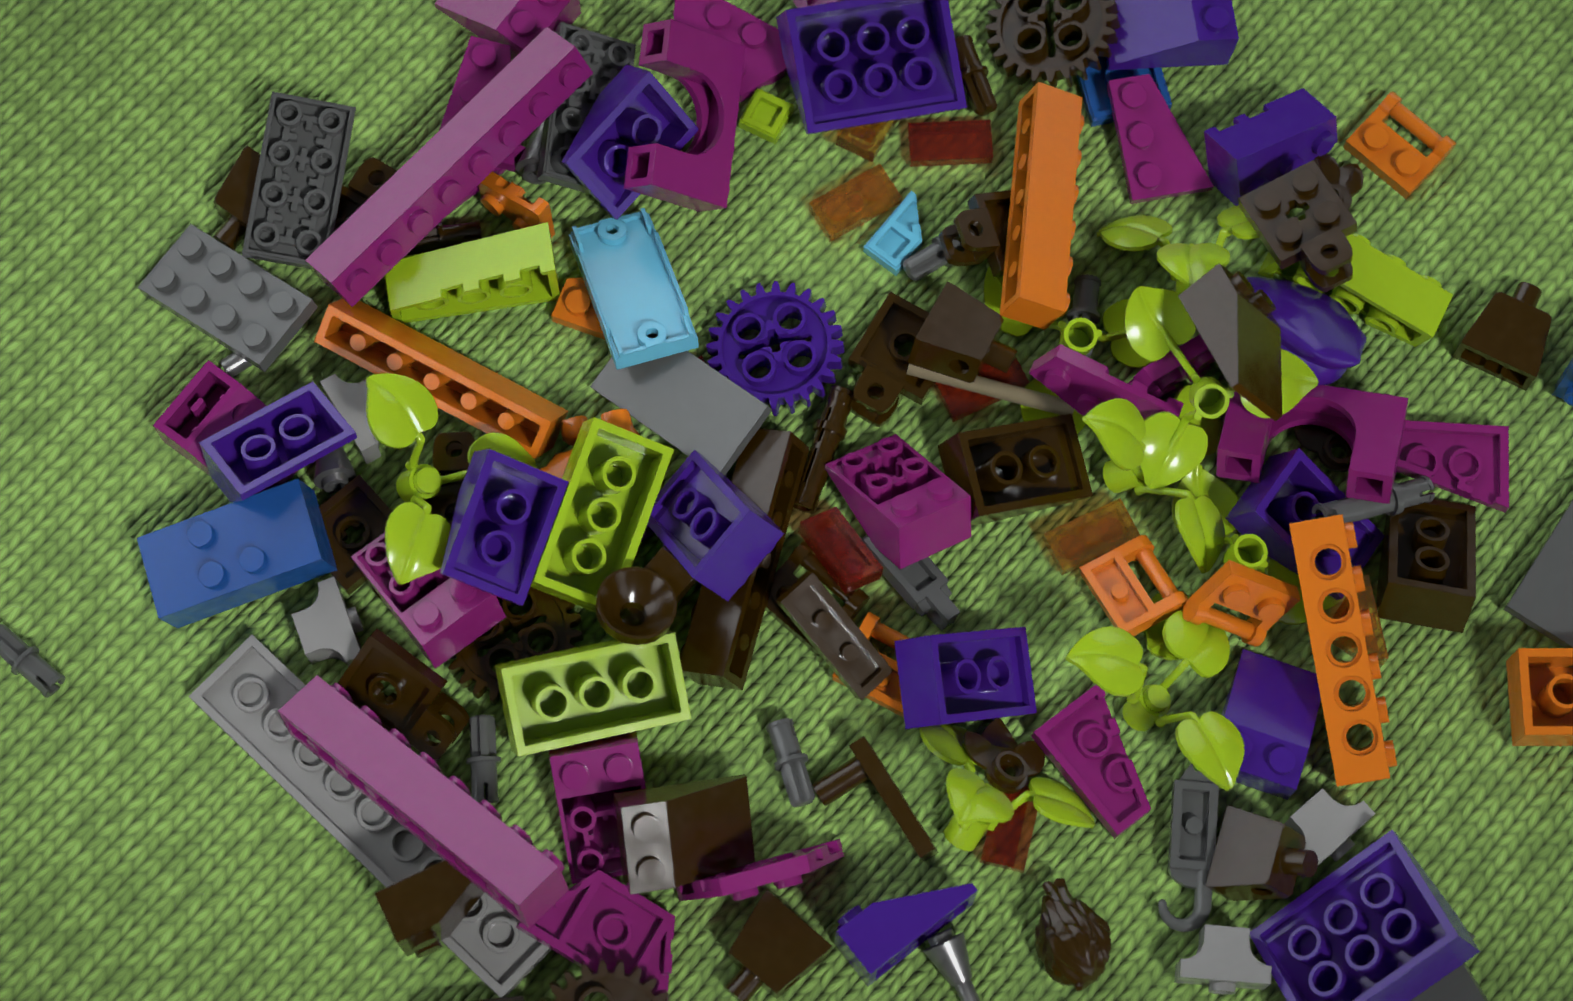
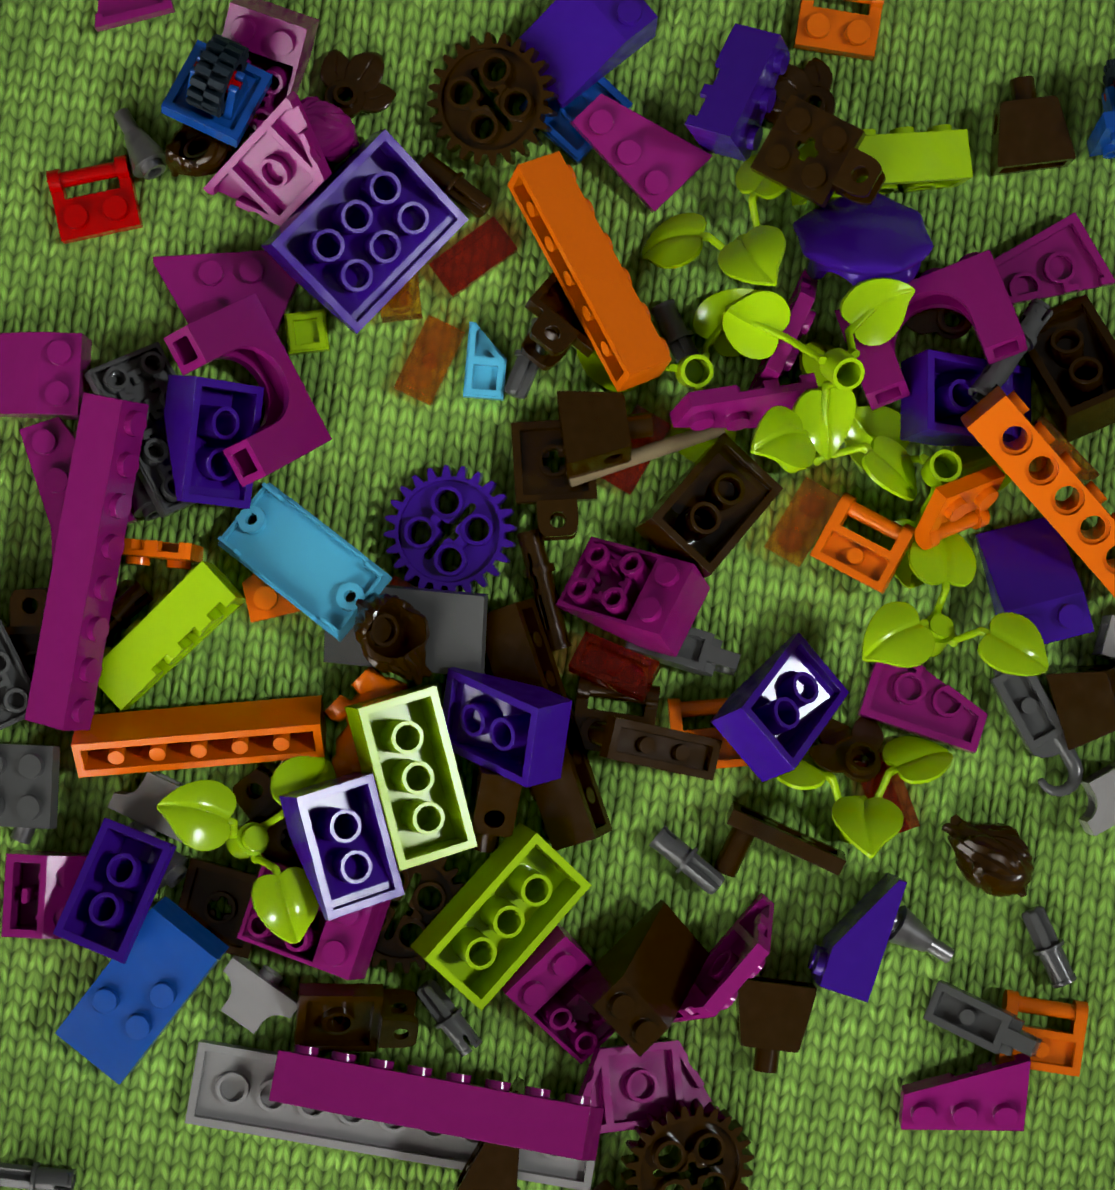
camera: 30 degrees left, 15 degrees up
(640, 590) = (489, 816): dark brown piece -> none
(665, 389) = (393, 636): none -> dark brown hair
(1240, 335) = (837, 302): dark brown slope -> none

